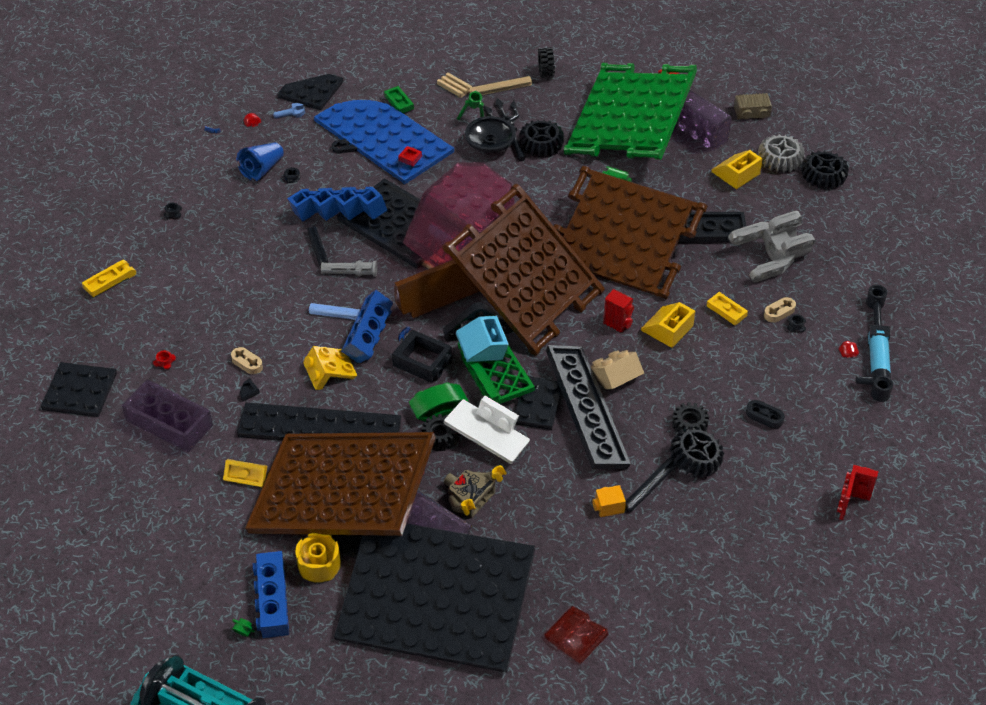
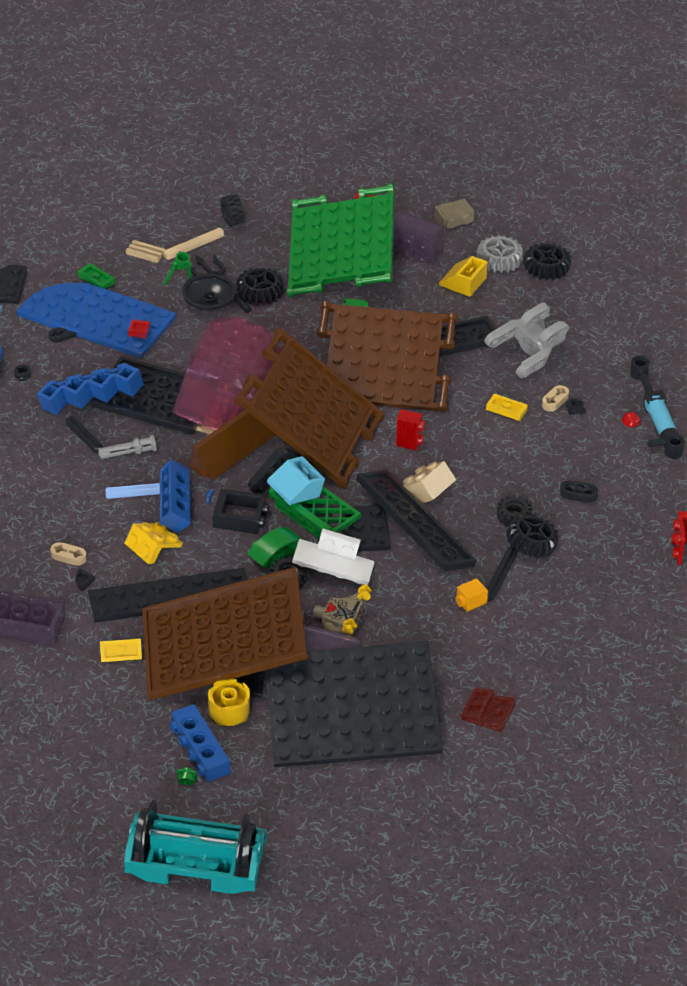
camera: 20 degrees left, 5 degrees down
(670, 323) = (460, 431): yellow slope -> none

